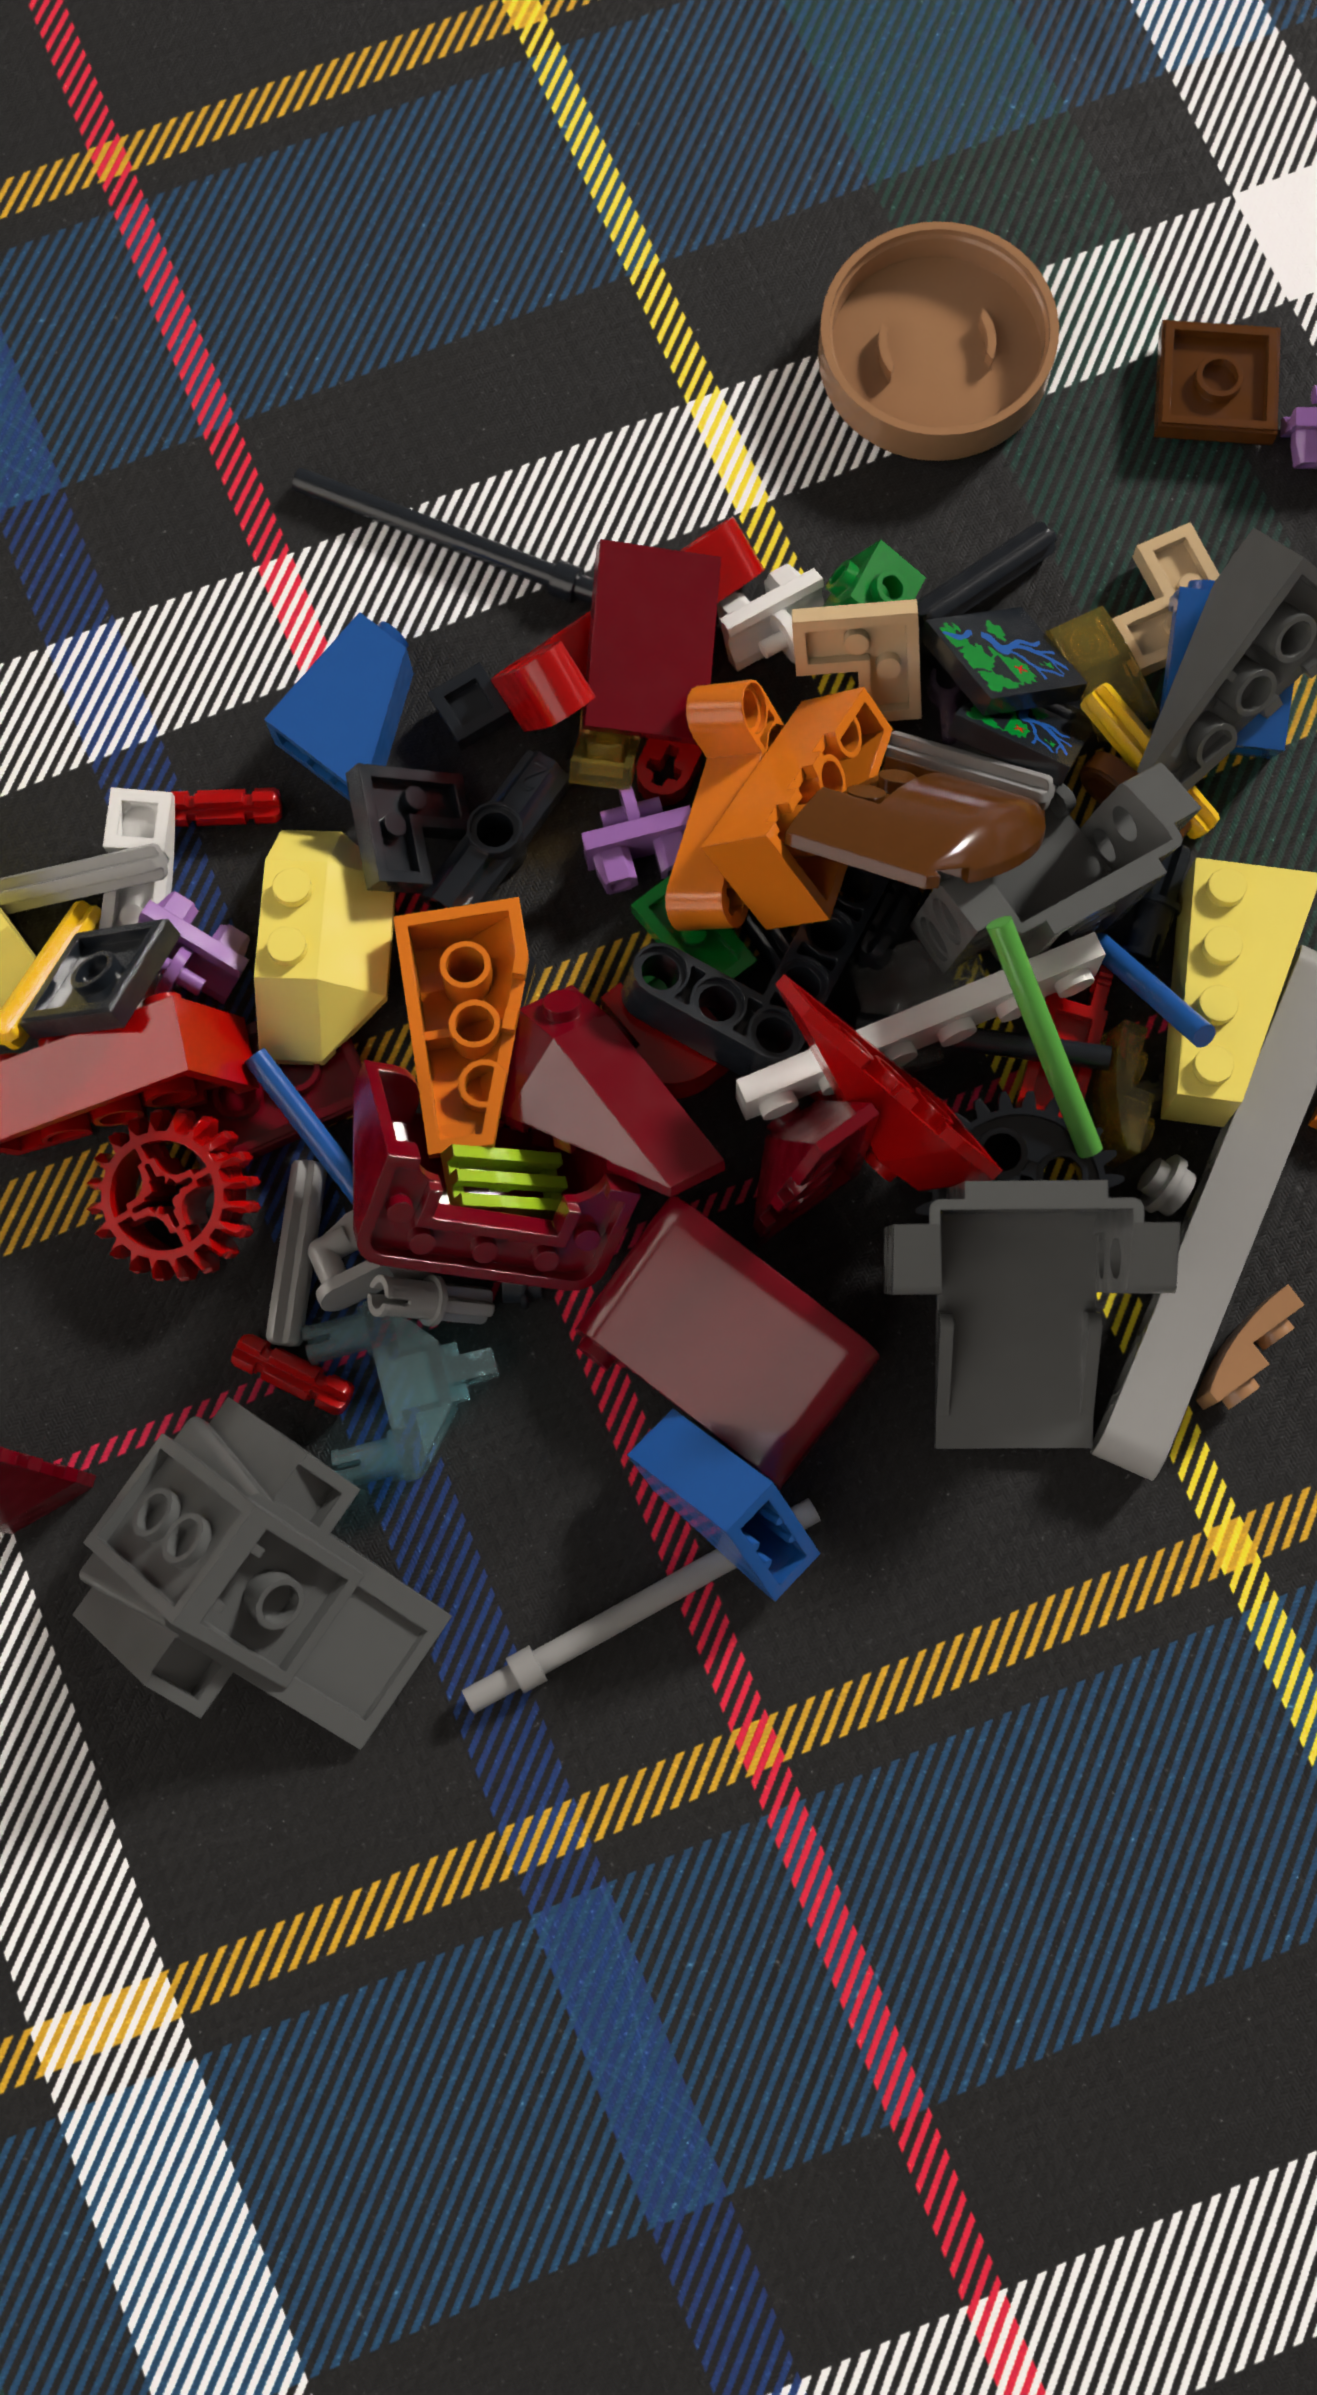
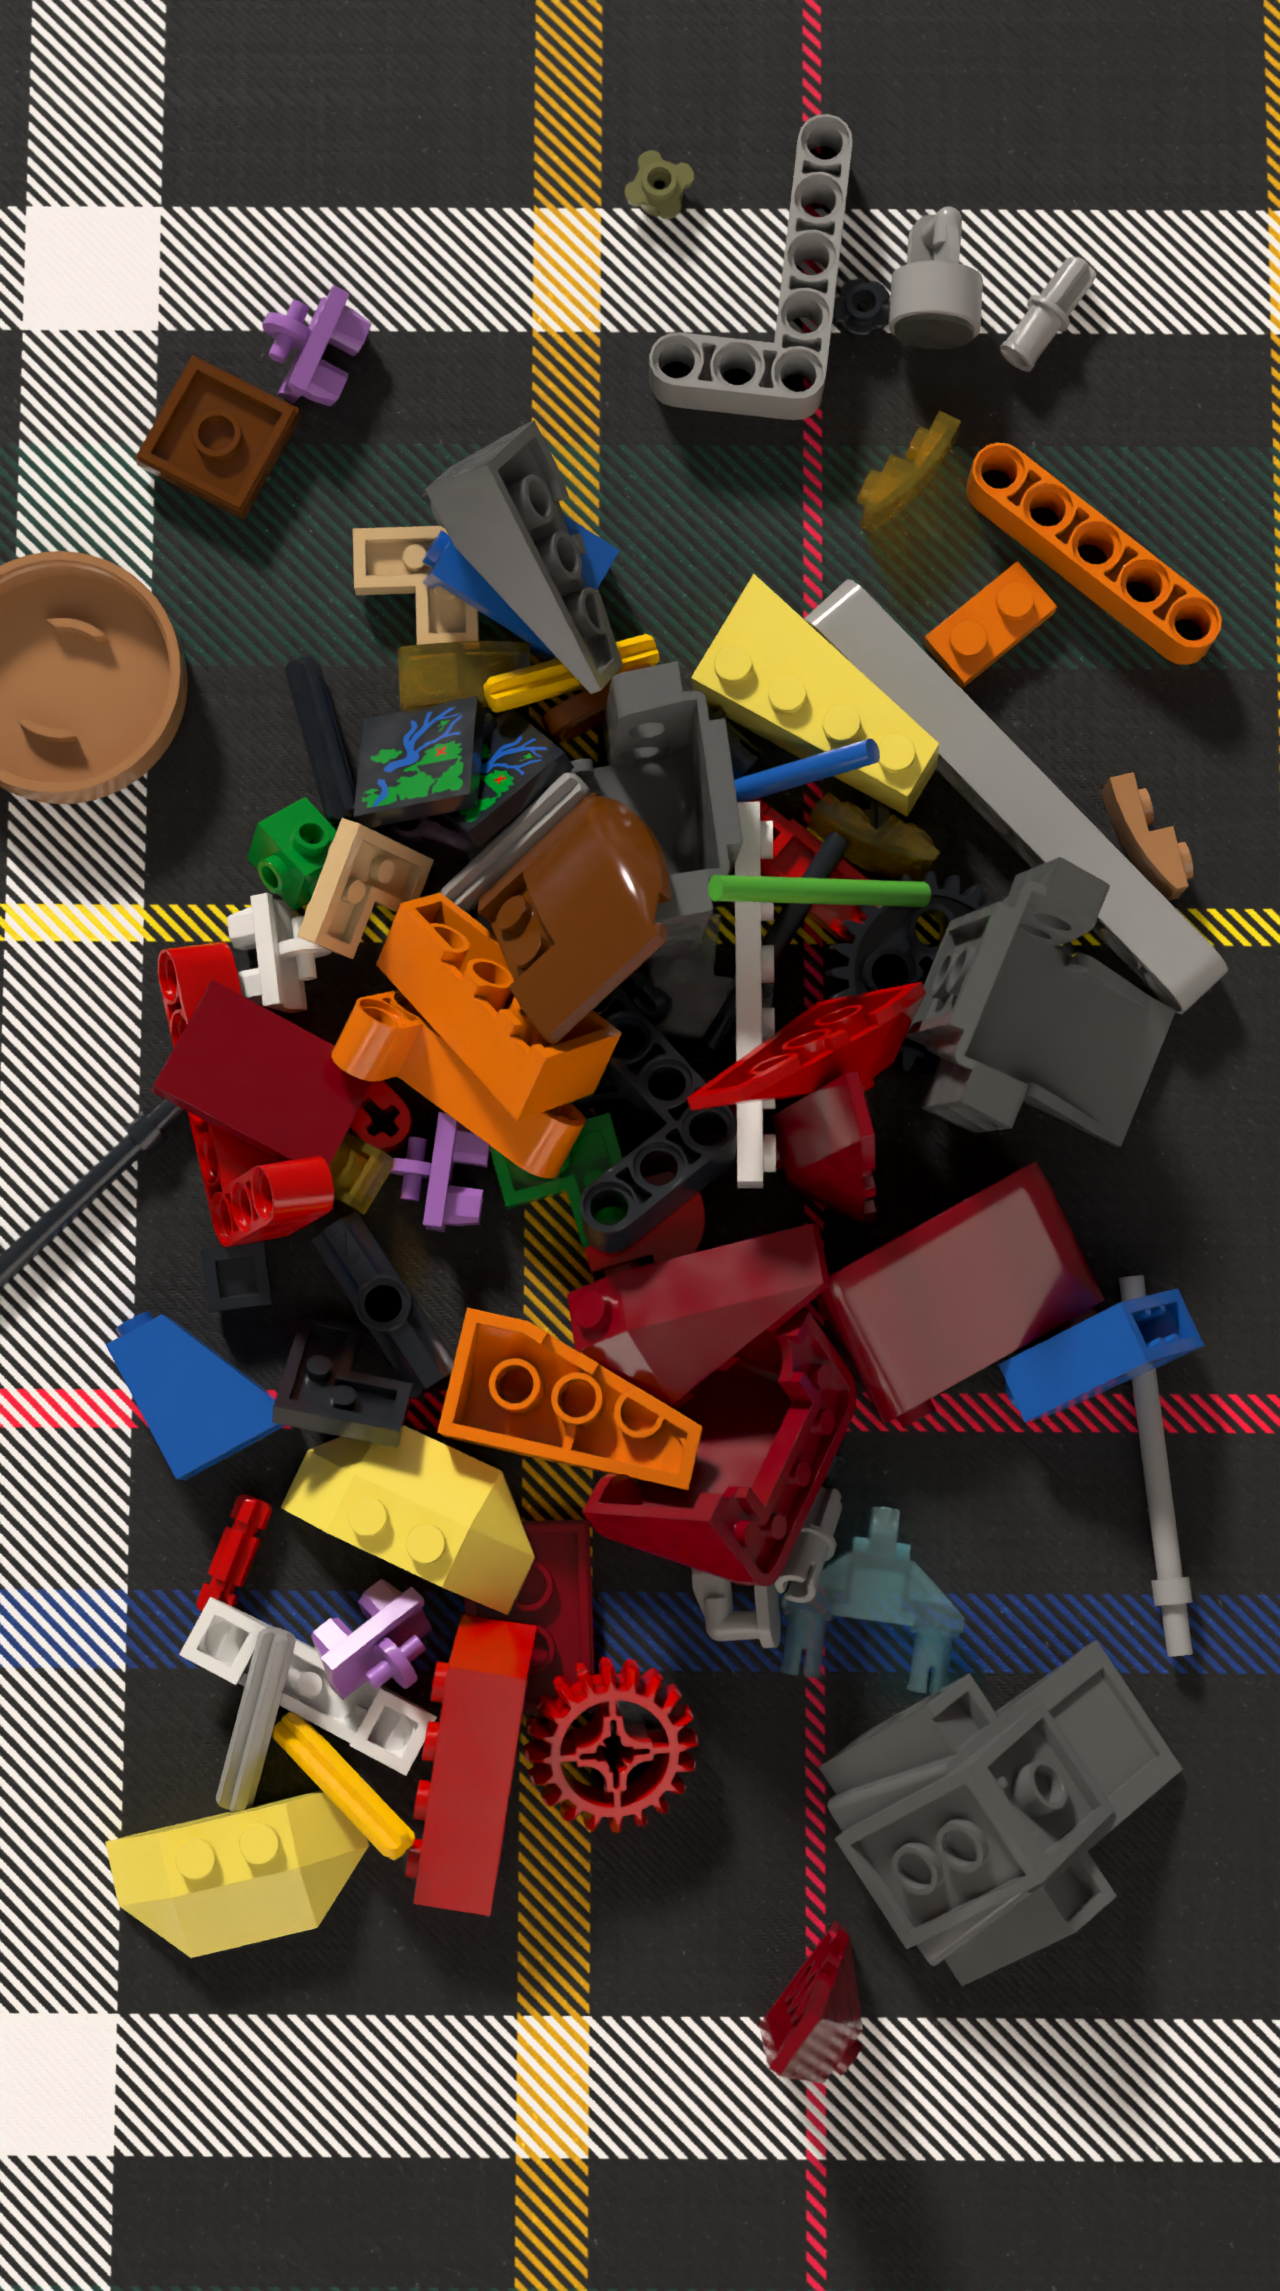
camera: 70 degrees left, 5 degrees up
(100, 979) = (385, 1733): black tile -> none
(292, 1374) = (819, 1699): red axle -> none
(293, 1264) = (705, 1653): light grey axle -> none
(303, 1120) = (596, 1593): blue bar -> none
(543, 1179) = (746, 1393): lime tile -> none
(1166, 1185) = (971, 839): light grey plate -> none

